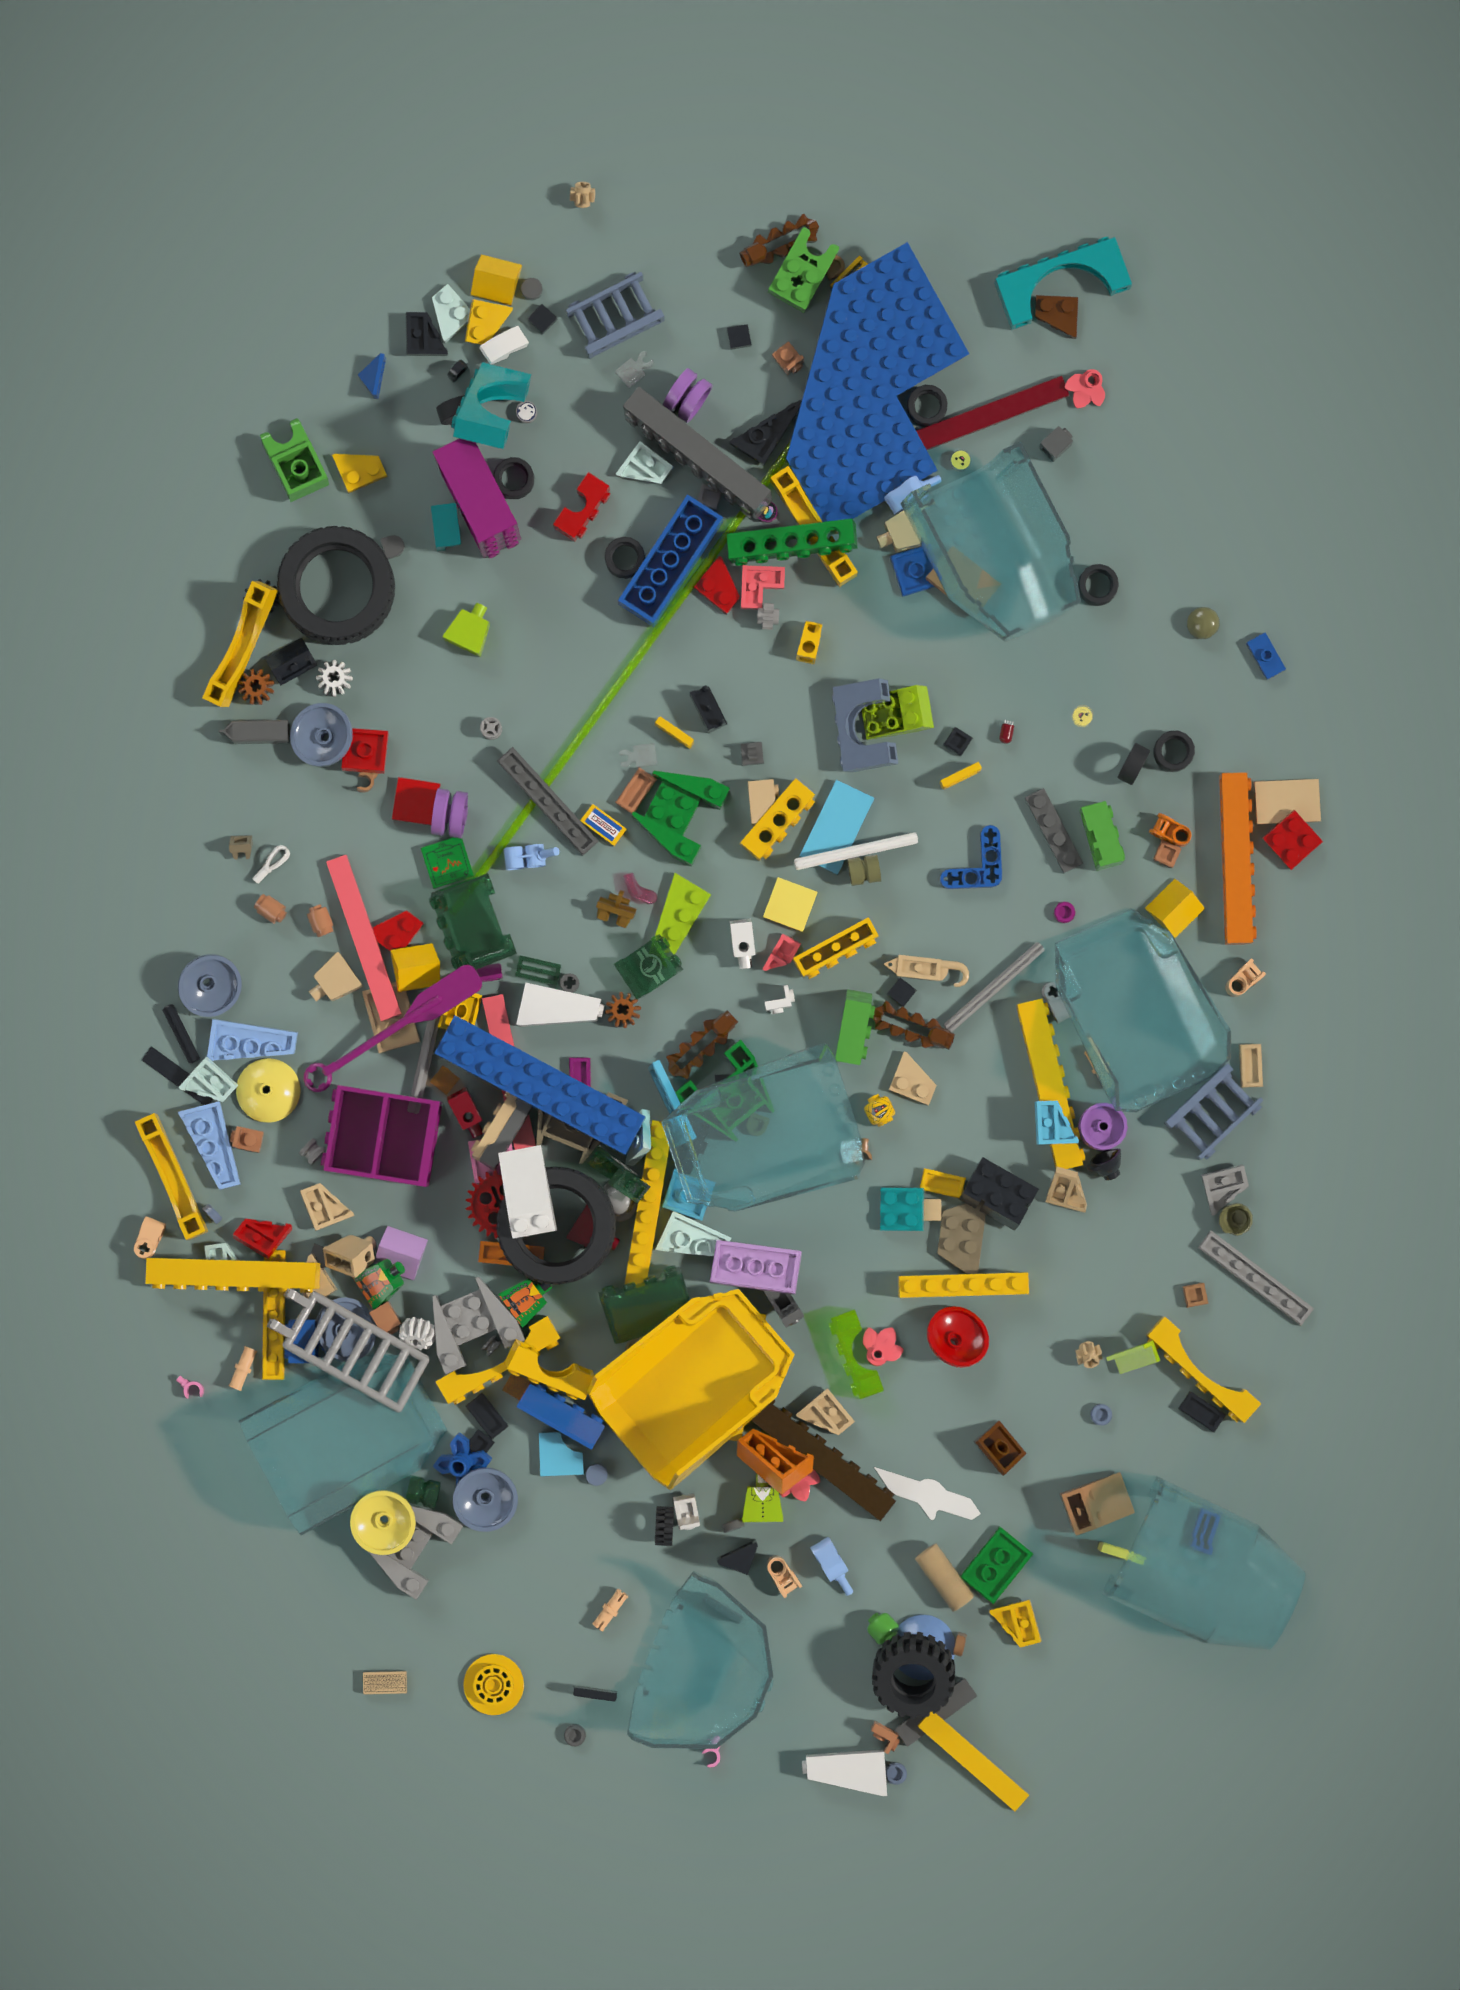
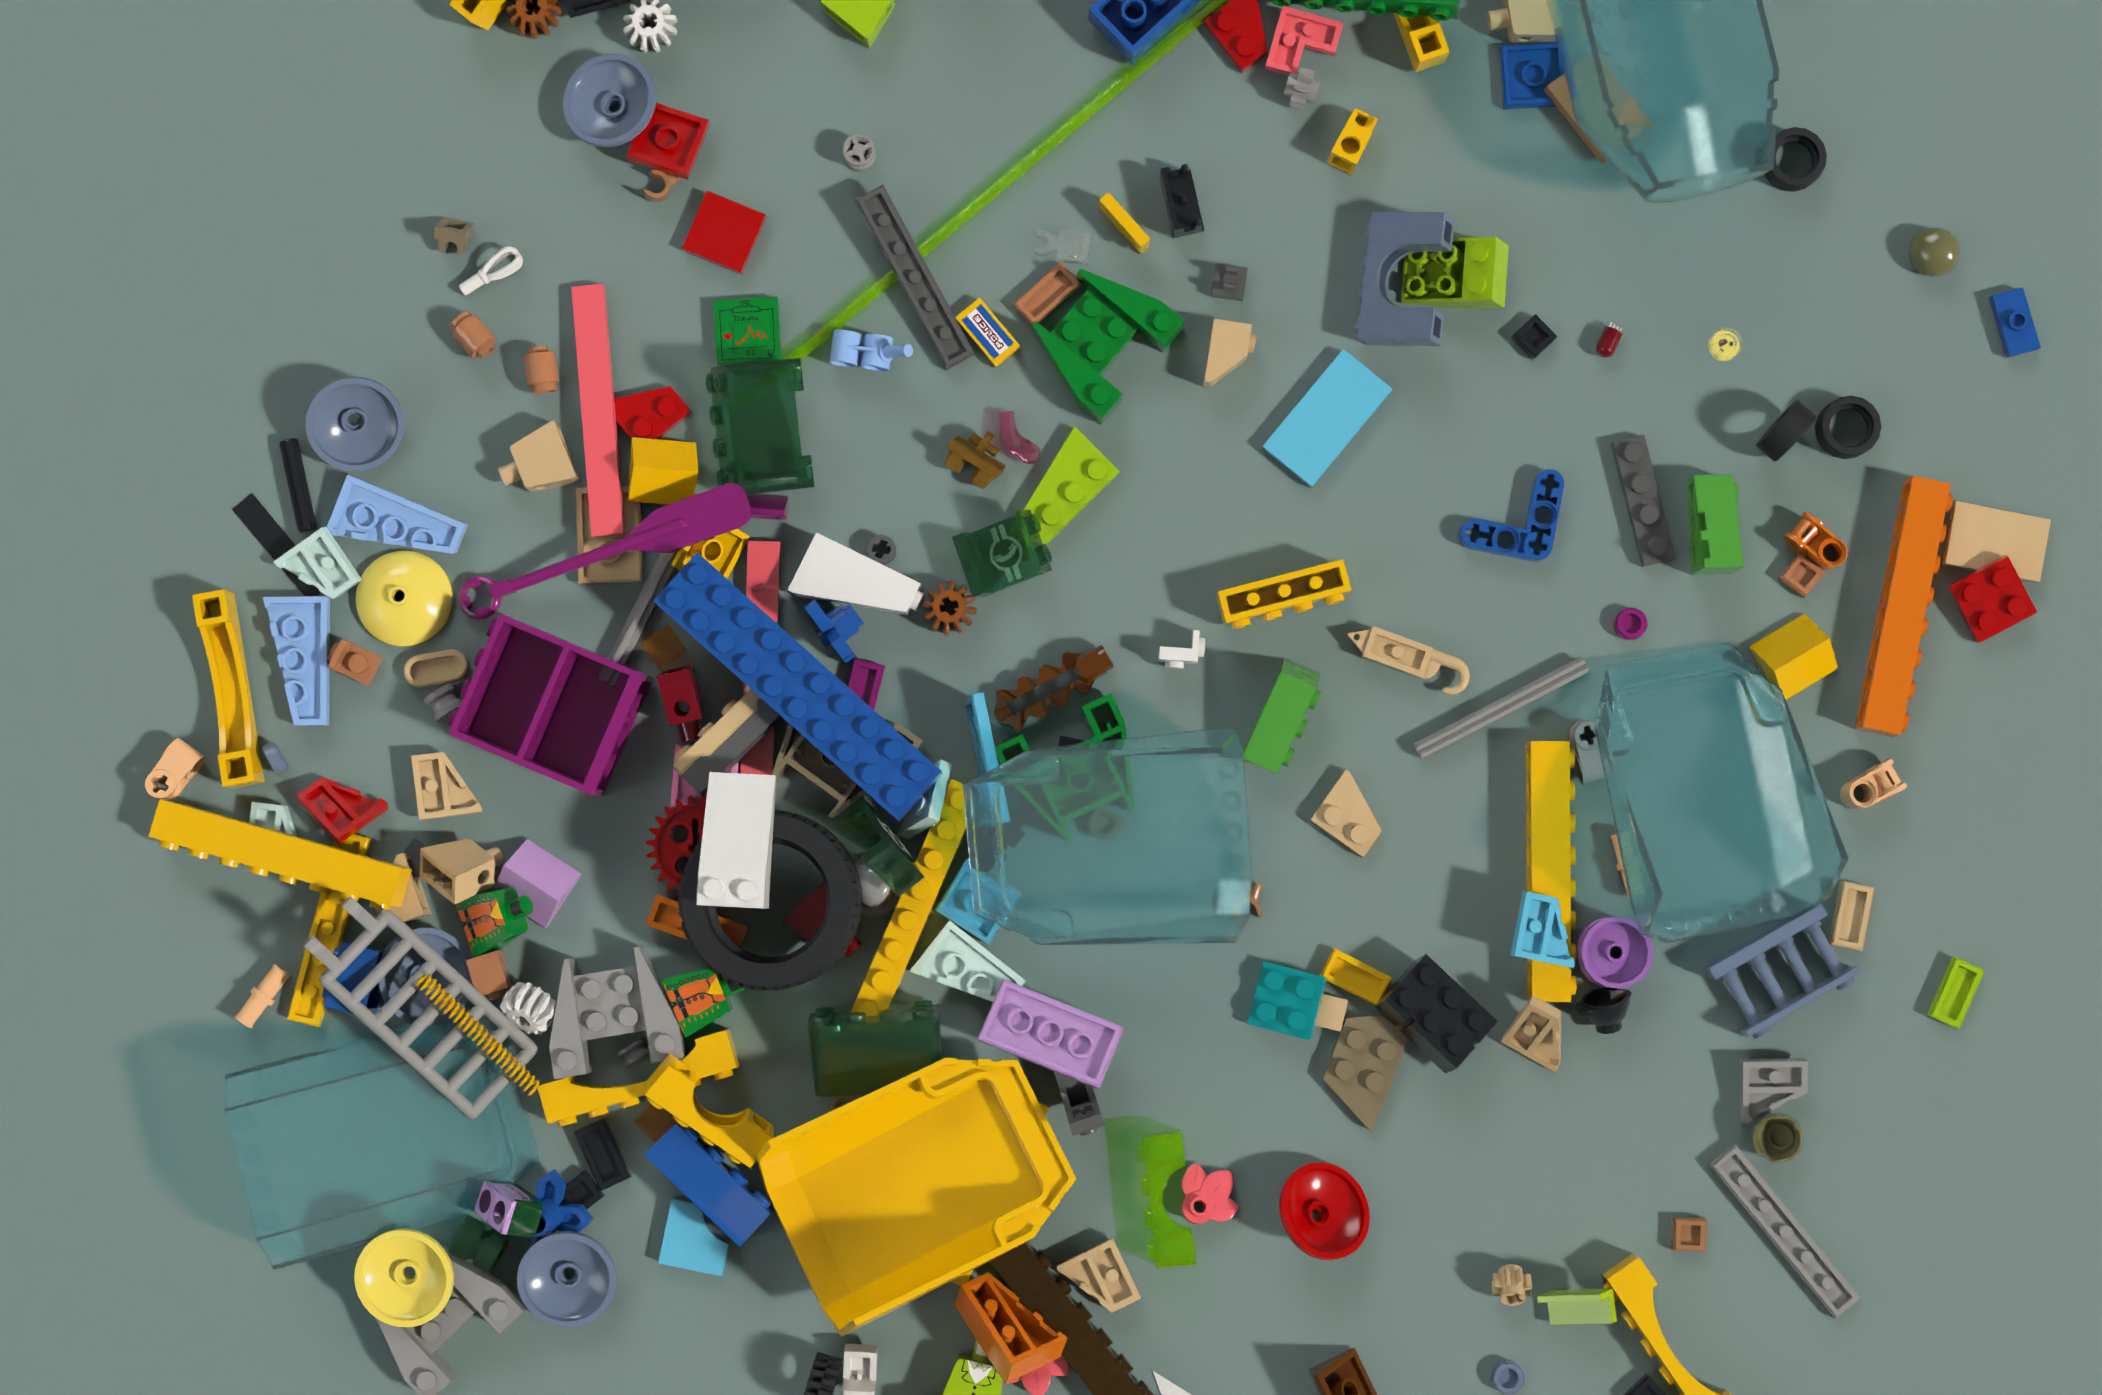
camera: 15 degrees right, 0 degrees up
(186, 1384) = (174, 999): bright pink piece -> none
(258, 732) = (519, 75): dark grey piece -> none
(300, 1130) = (436, 668): none -> tan tile
(392, 1354) = (479, 1033): none -> yellow piece
(447, 813) = (766, 258): medium lavender wheel -> none
(447, 1463) = (520, 1218): none -> piece
(520, 966) = (815, 507): clear green tile -> none
(553, 1040) = (836, 627): none -> blue plant
(596, 1474) = (741, 1281): sand blue tile -> none
(742, 932) = (1149, 535): white torso -> none
(782, 953) = (1203, 581): coral slope -> none
(790, 904) = (1231, 514): light yellow tile -> none
(794, 791) = (1279, 351): yellow brick -> none
(855, 851) = (1347, 459): white axle -> none
(864, 870) = (1352, 490): olive wheel -> none
(879, 1110) = (1289, 847): yellow head -> none
(901, 992) = (1363, 682): black tile -> none
(937, 1036) = (1401, 758): reddish brown sword -> none
(960, 775) = (1526, 387): yellow tile -> none
(963, 1285) = (1350, 1136): yellow arch -> none
(1329, 1098) = (1955, 992): none -> lime tile

